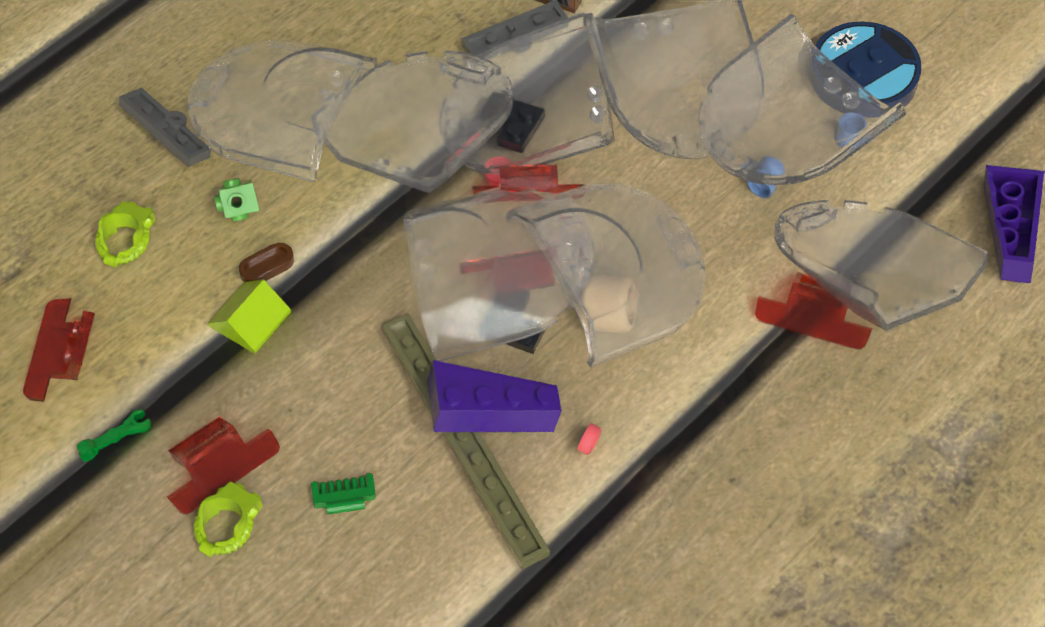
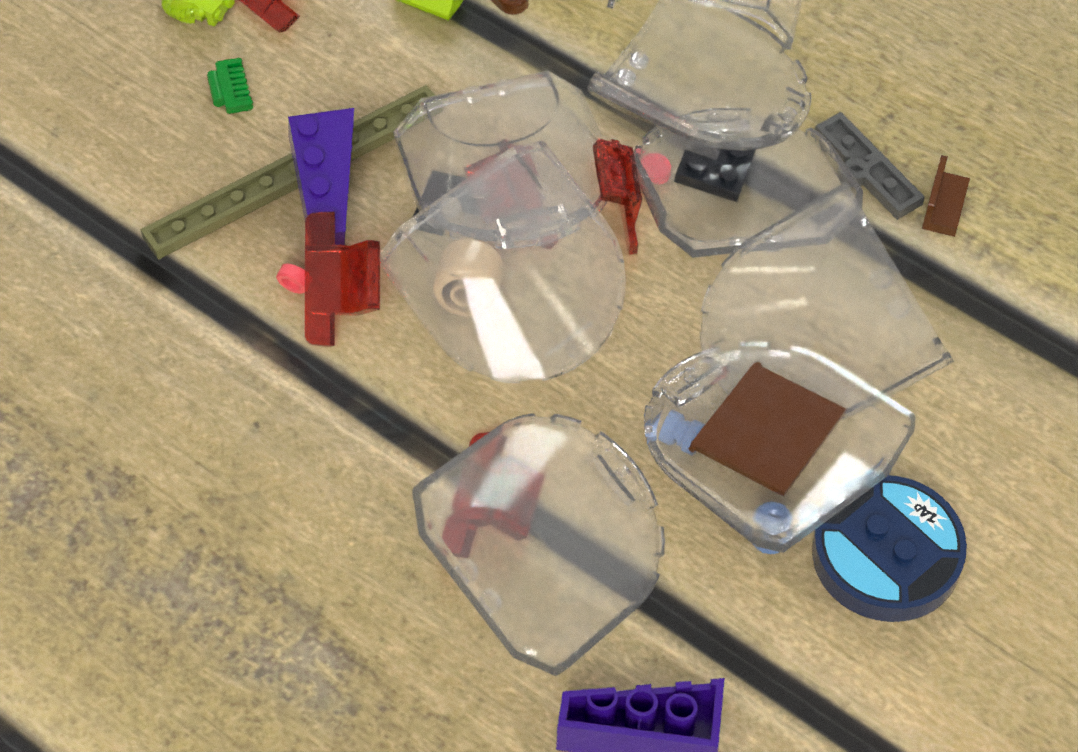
camera: 85 degrees right, 0 degrees up
(602, 395) = (336, 279): none -> clear red plate
(782, 111) = (768, 429): none -> reddish brown piece

